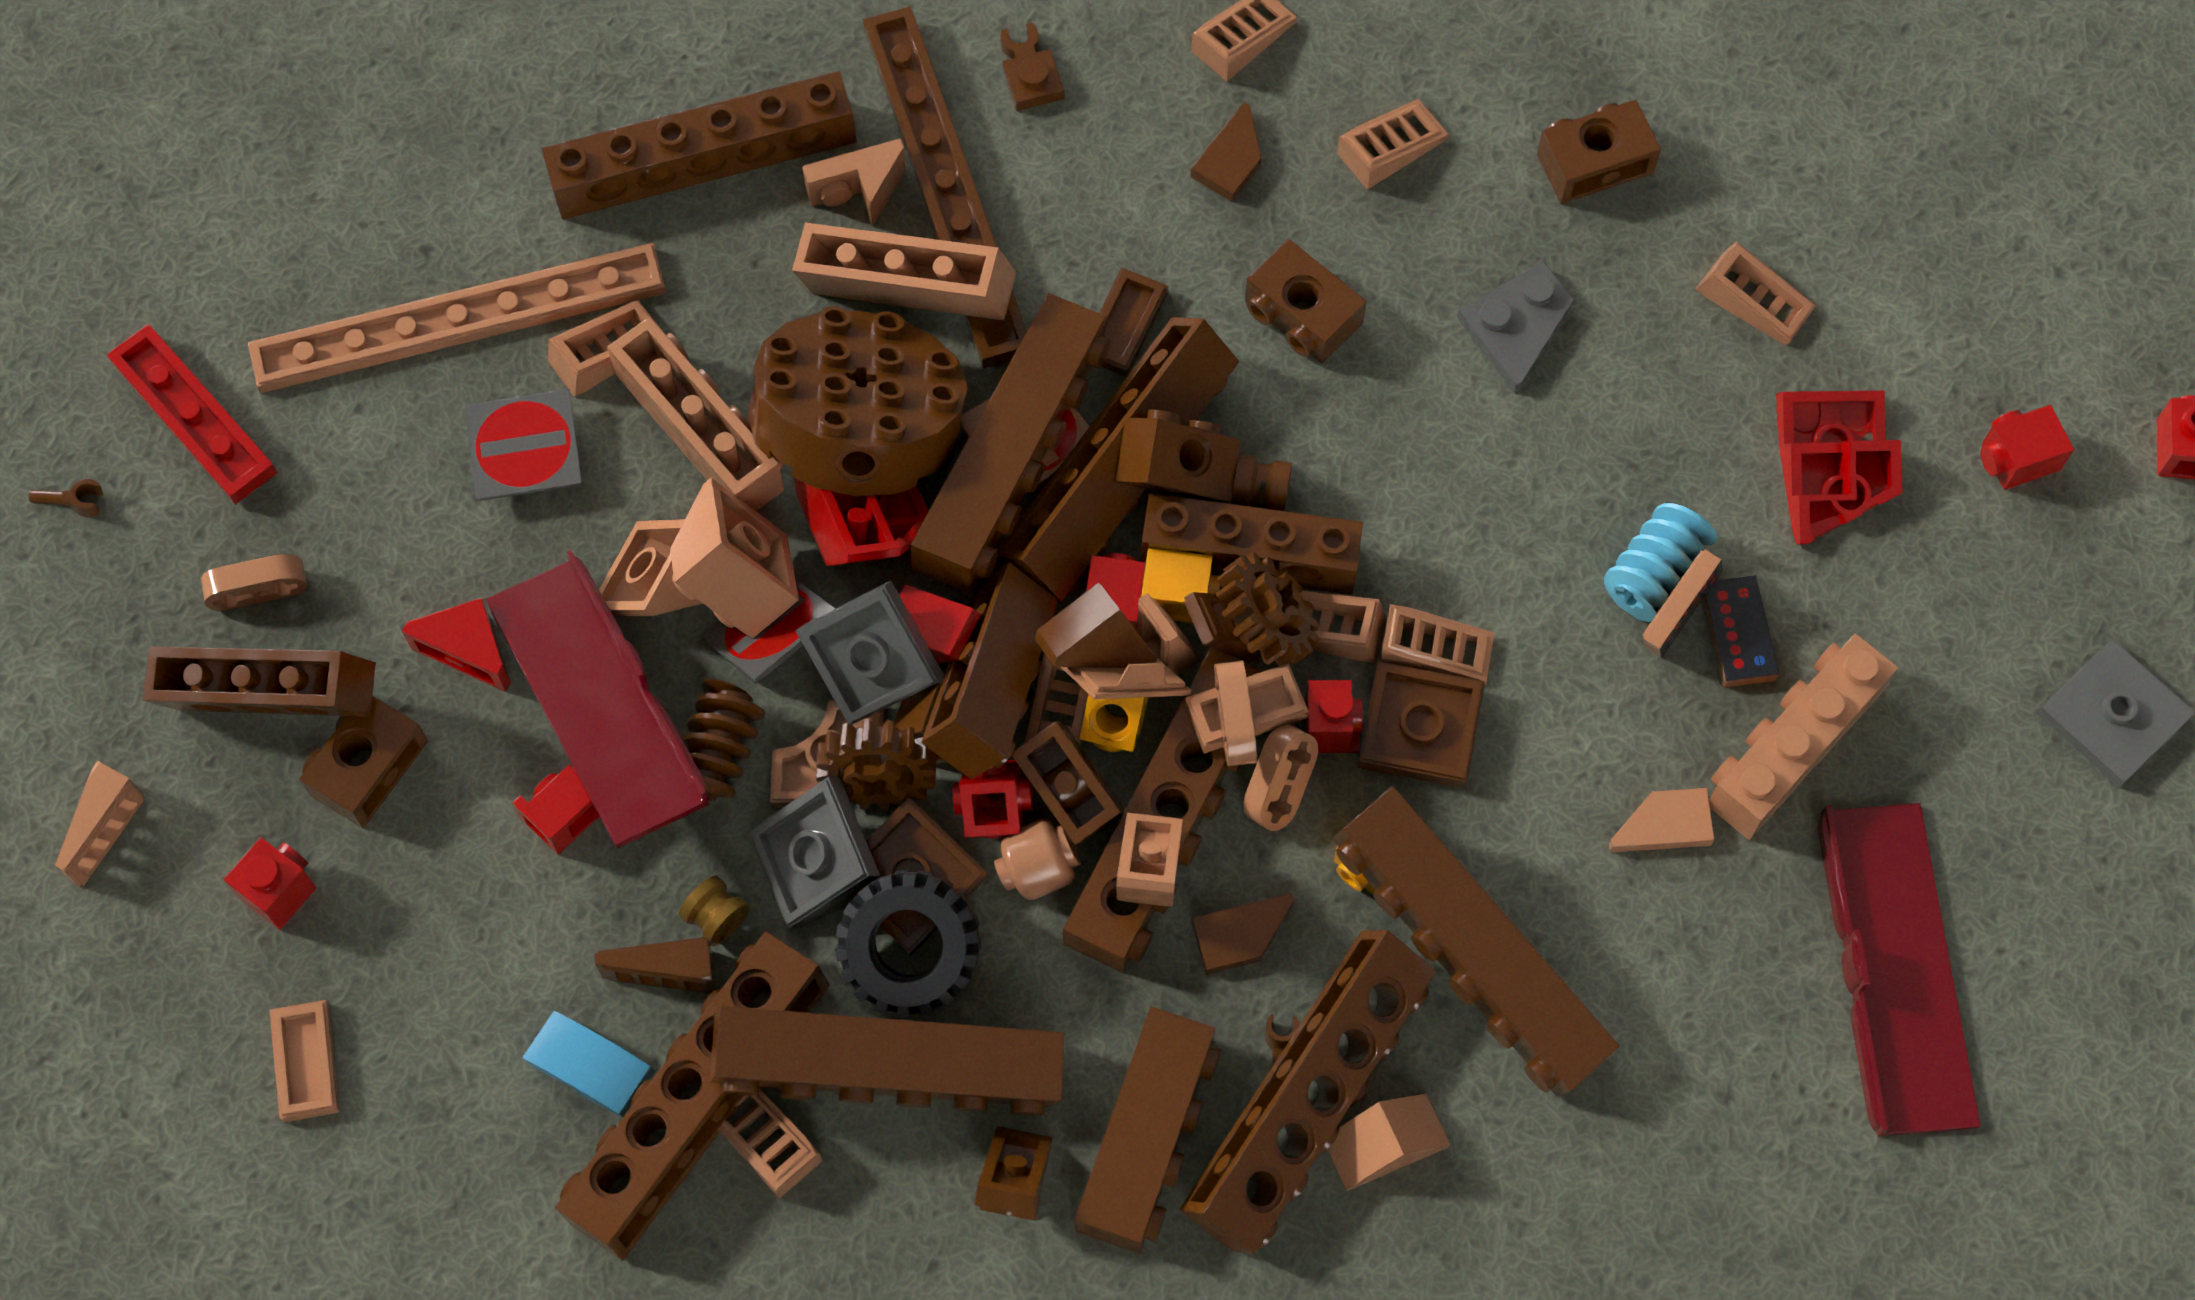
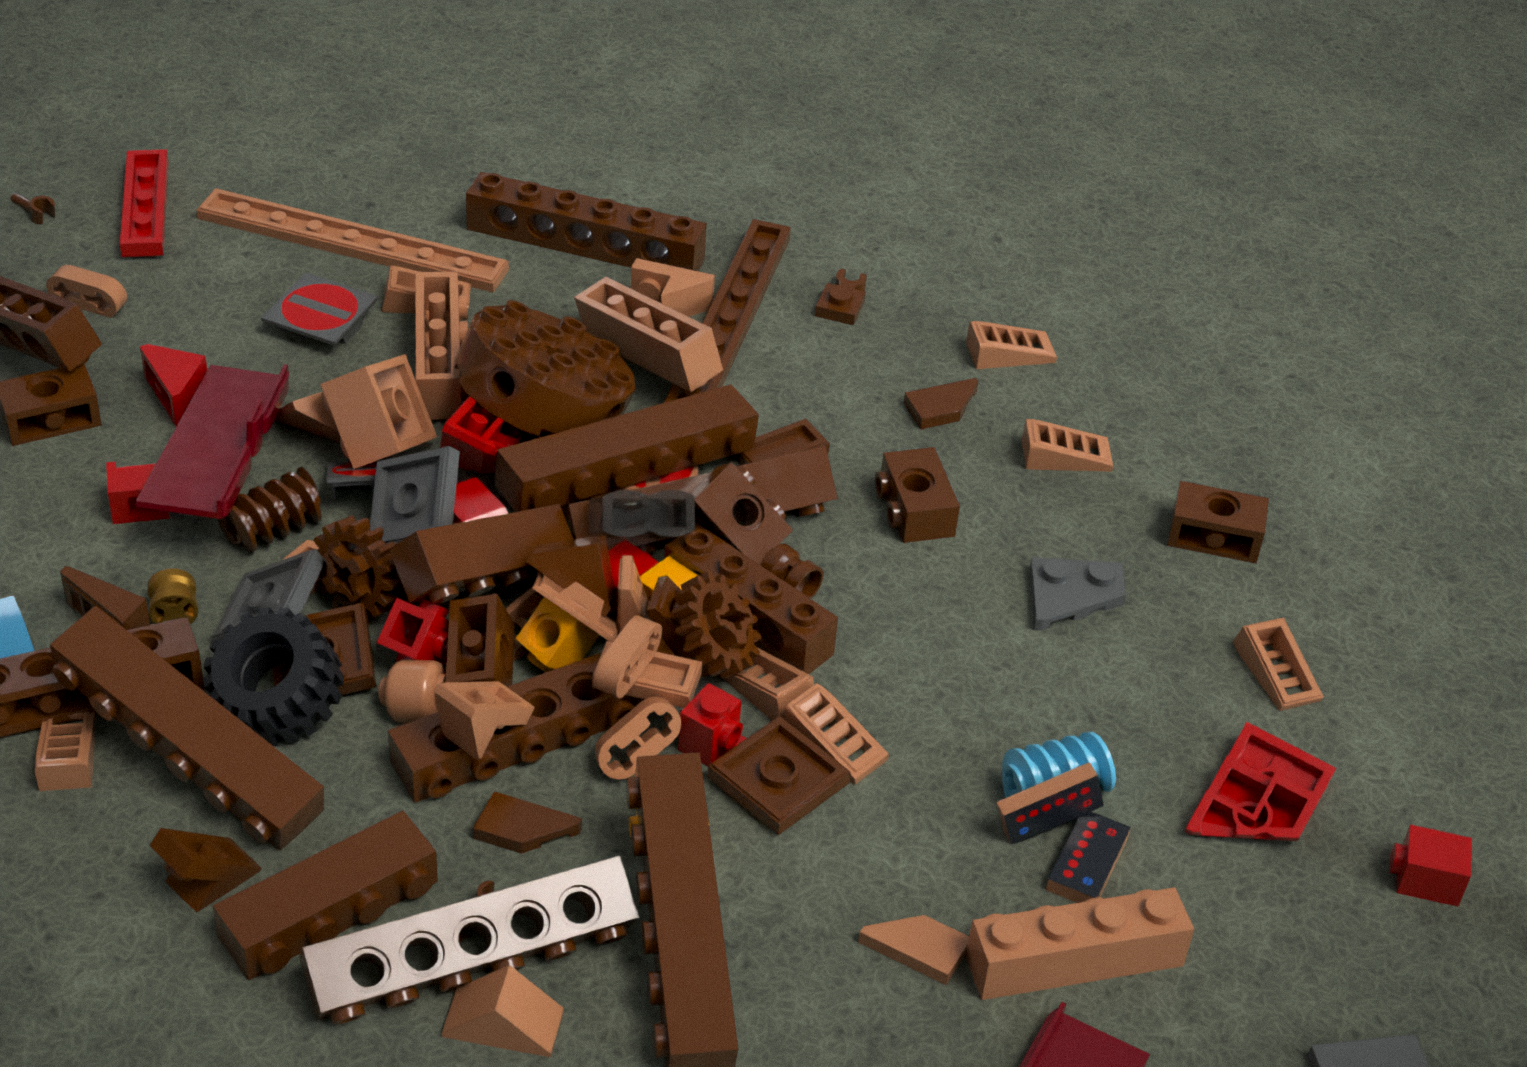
camera: 30 degrees right, 25 degrees down
(1106, 530) = (648, 515): none -> clear smoke brick

